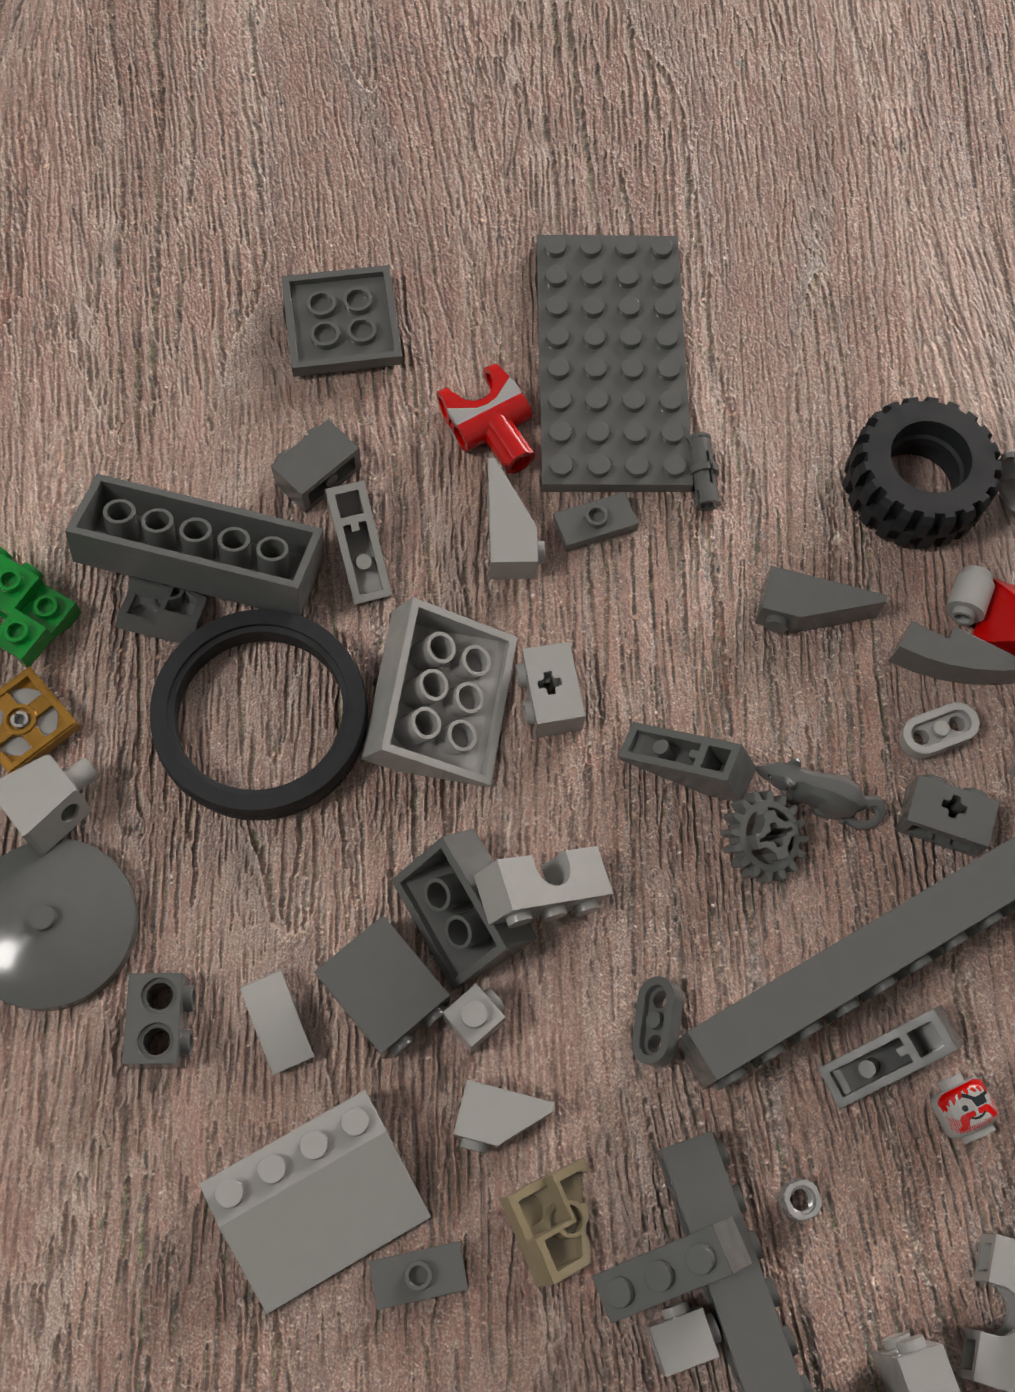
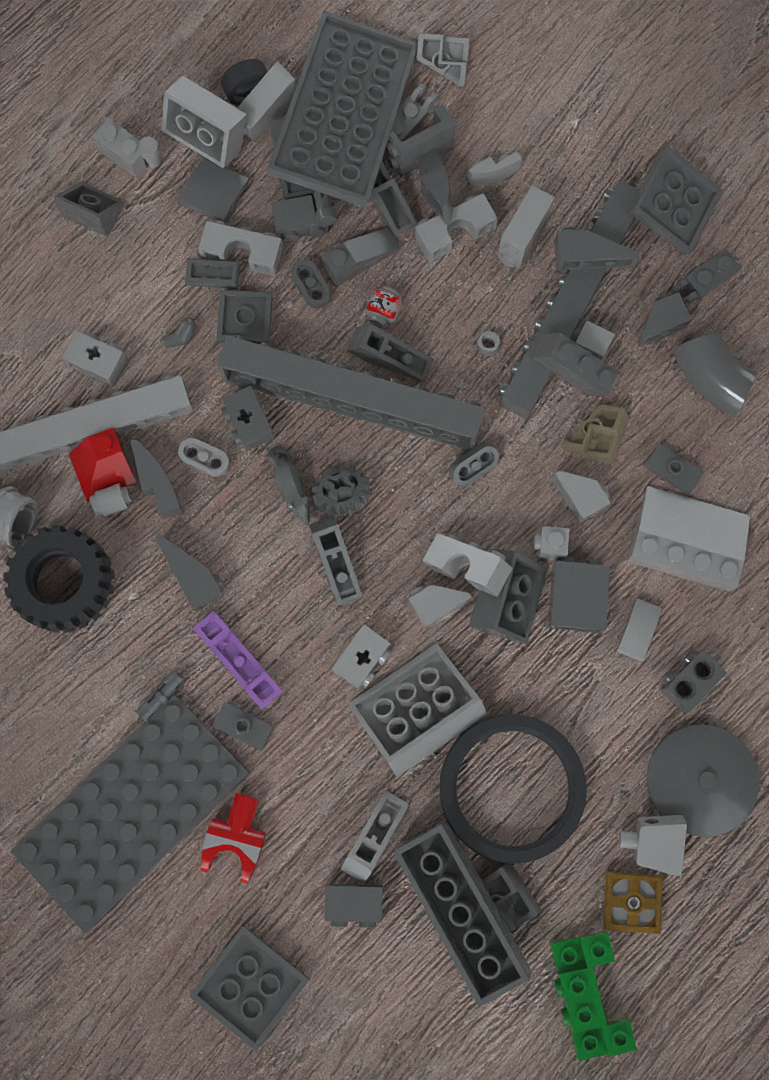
camera: 130 degrees left, 10 degrees up
(511, 530) = (293, 762): light grey slope -> none
(536, 817) = (435, 603): none -> light grey slope
(669, 574) = (238, 660): none -> medium lavender slope

